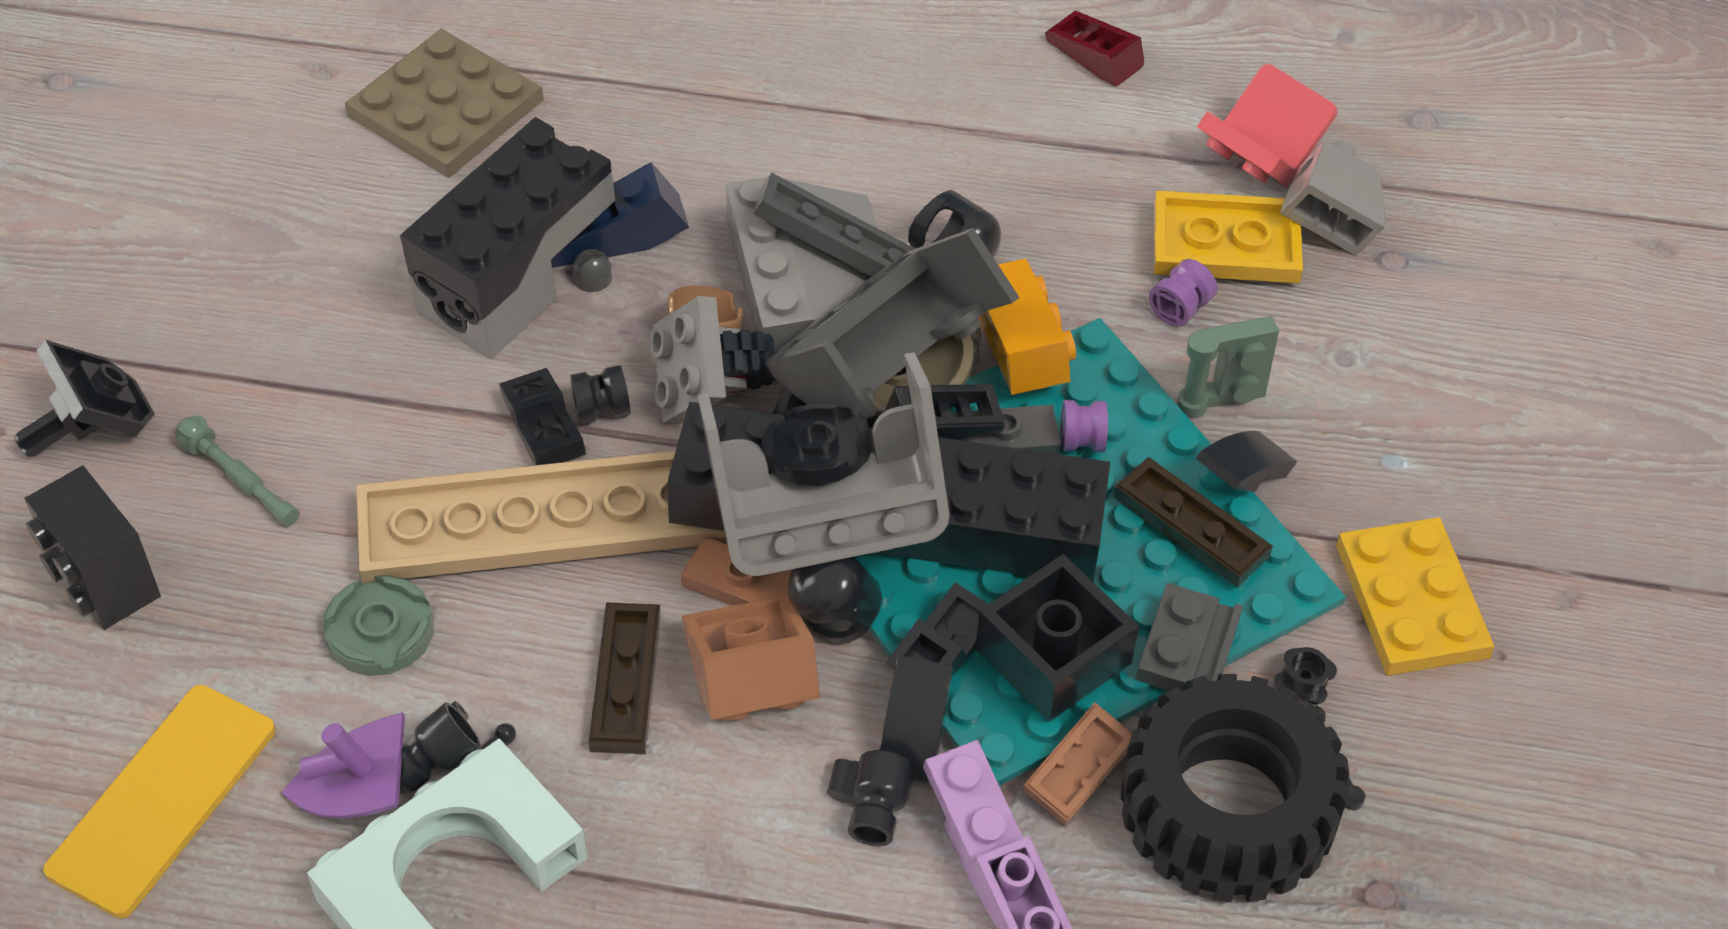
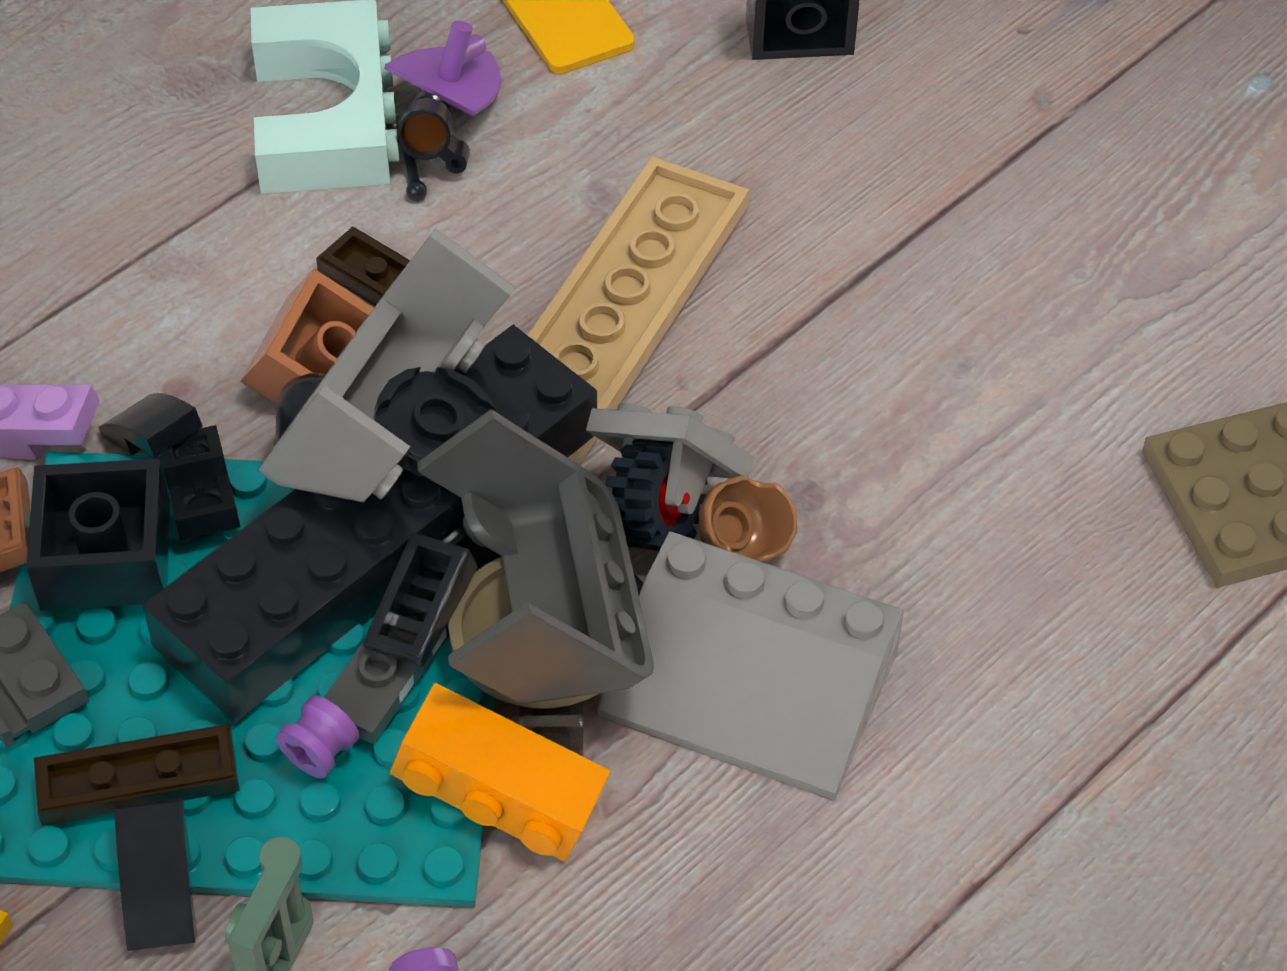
camera: 125 degrees right, 0 degrees up
(87, 396) = (990, 61): black piece -> none
(199, 439) = (905, 128): sand green piece -> none
(378, 625) = (595, 161): sand green tile -> none
(489, 243) = (953, 376): black piece -> none
(542, 418) = (748, 365): black slope -> none
(588, 396) = (722, 397): black wheel -> none
(592, 270) = (904, 506): dark grey hinge -> none
(642, 216) = (950, 529): dark blue slope -> none
(827, 226) = (737, 678): dark grey plate -> none
(880, 788) = (118, 372): black piece -> none
(963, 217) = (685, 825): black helmet -> none

